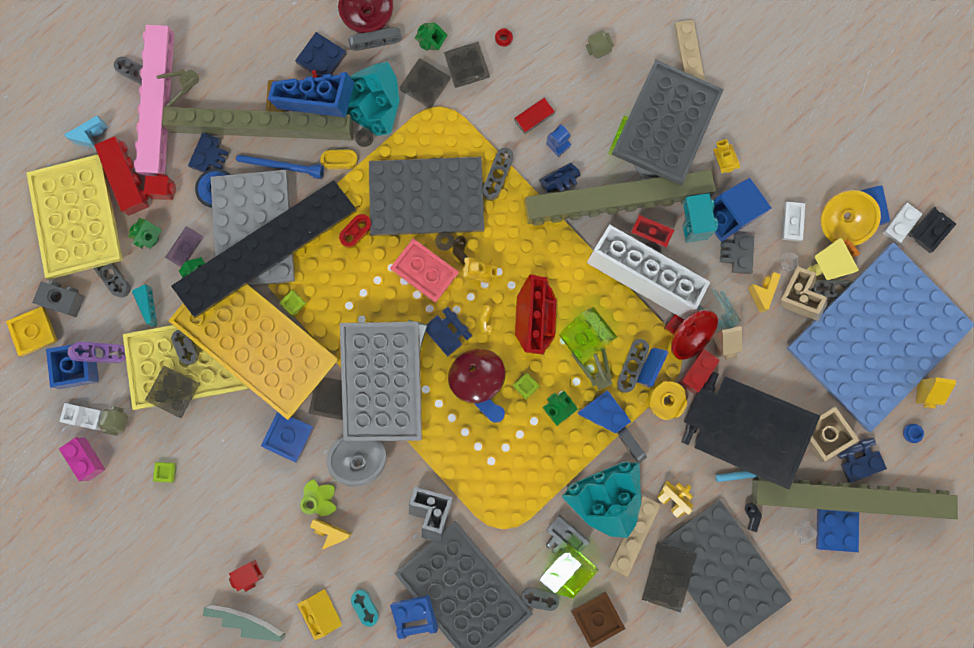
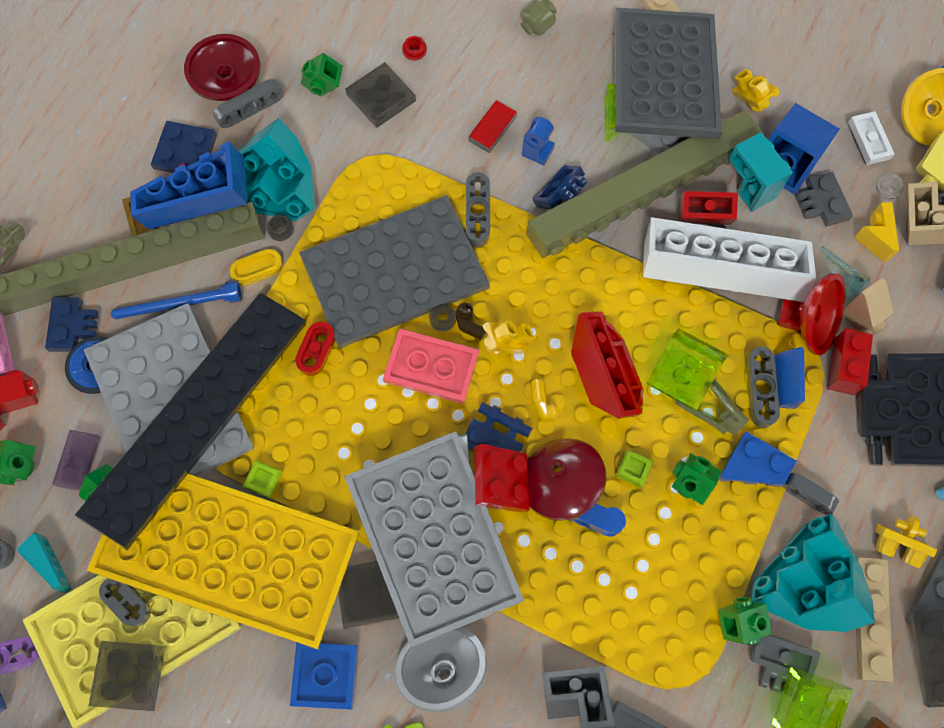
camera: 25 degrees left, 10 degrees down
(424, 83) = (335, 134): clear smoke plate -> none
(436, 361) = (501, 478): none -> red plate
(550, 505) = (744, 621): none -> green brick
(677, 397) = (814, 419): yellow plate -> none

